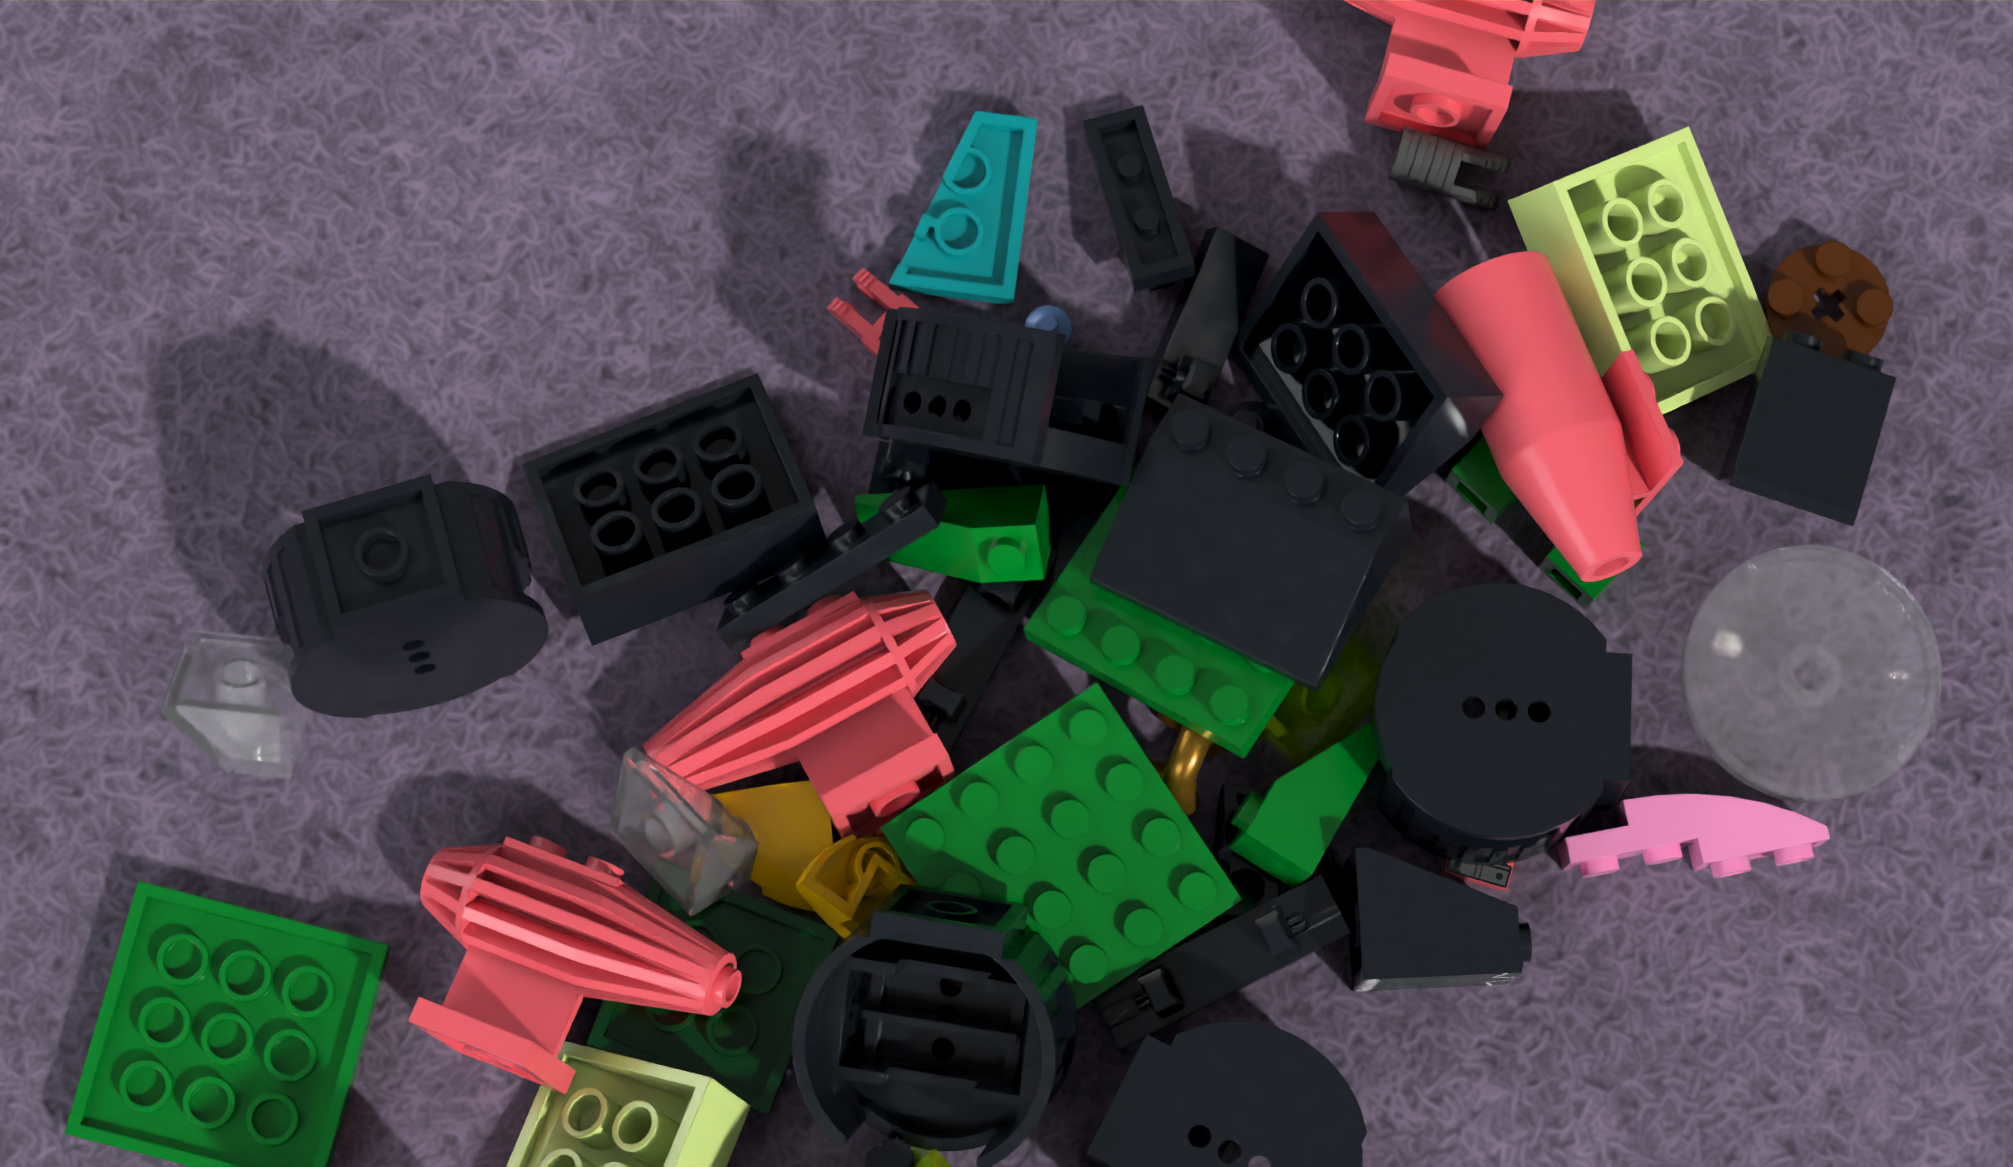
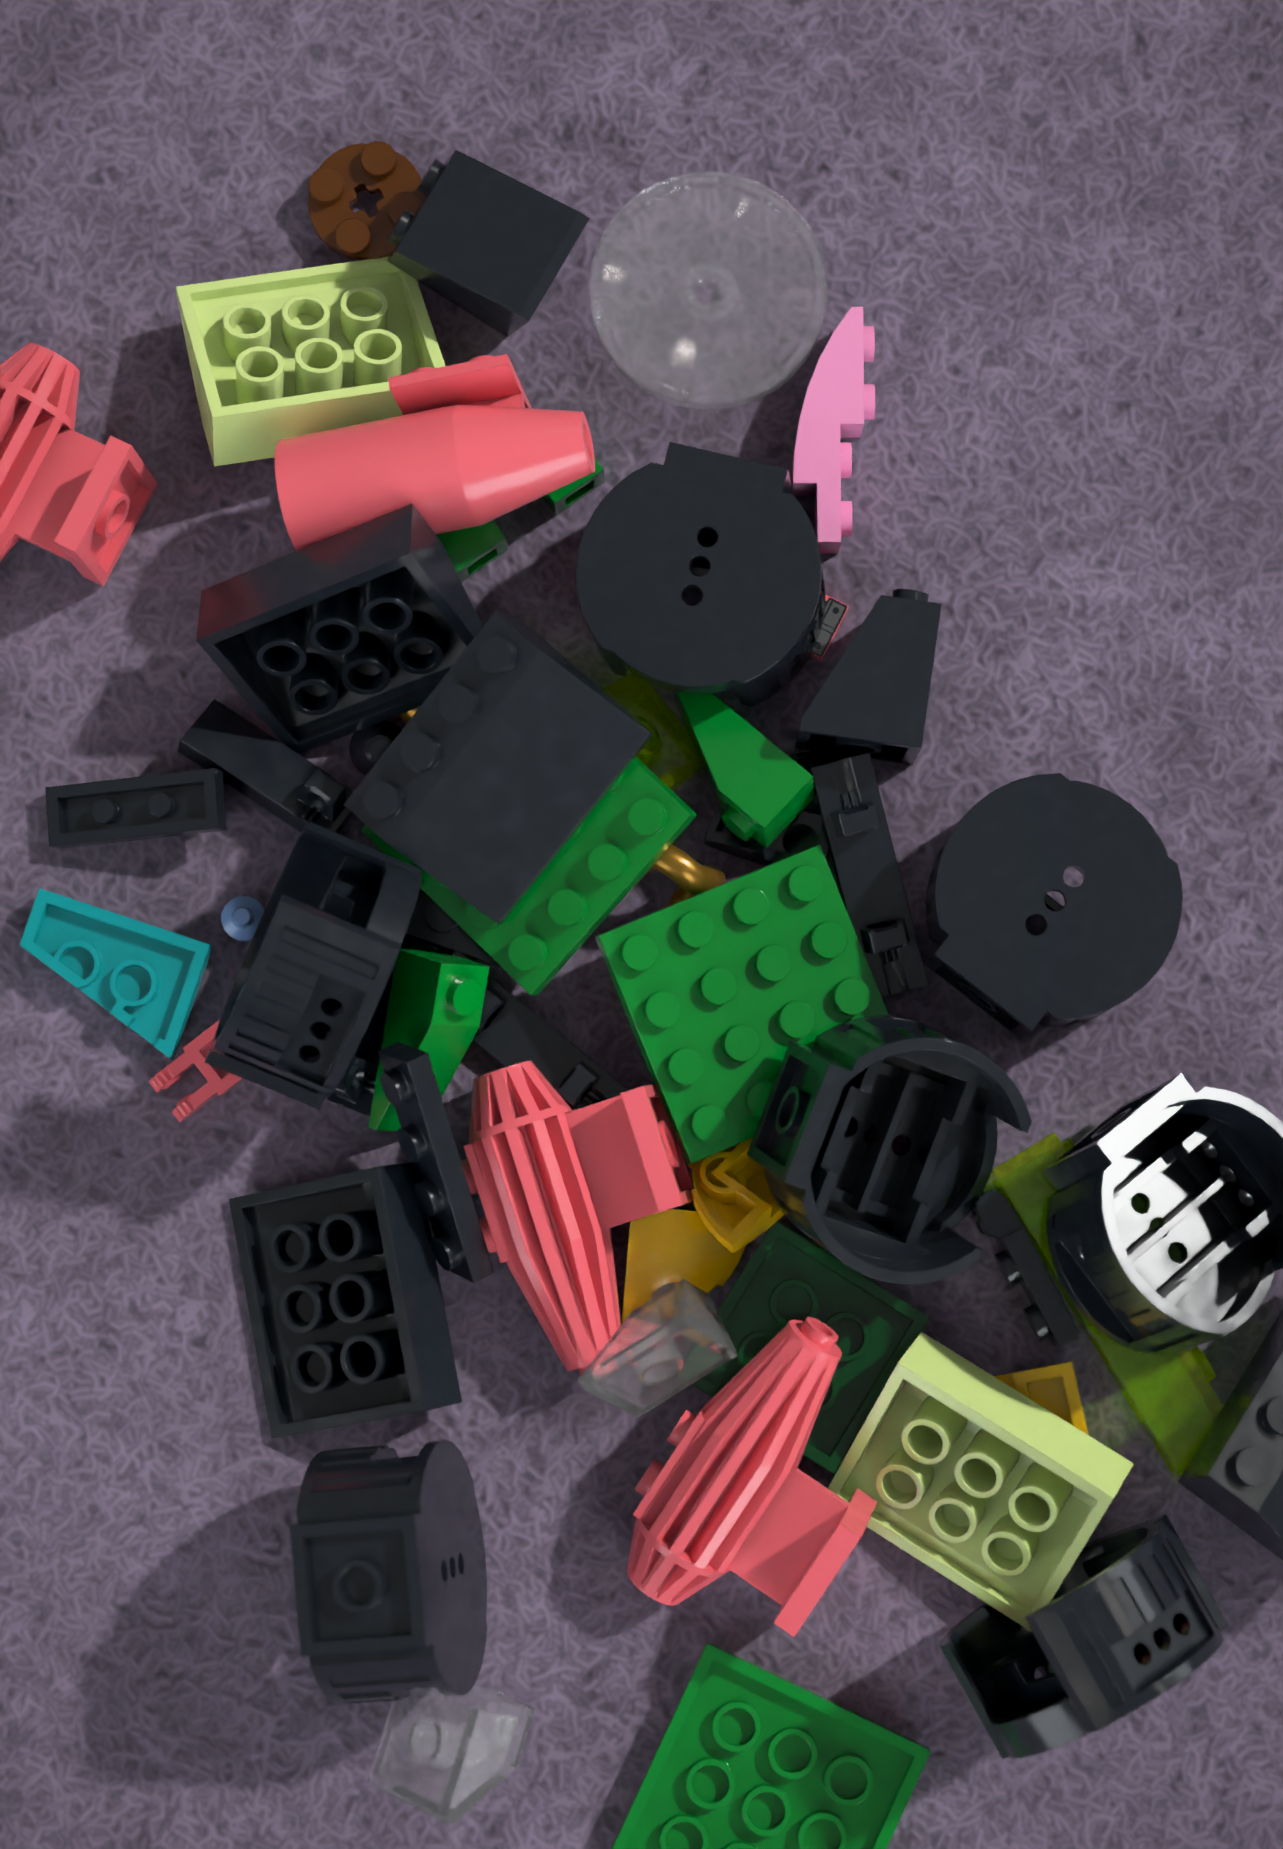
camera: 75 degrees left, 5 degrees up
(1433, 164) = (159, 527): dark grey hinge -> none

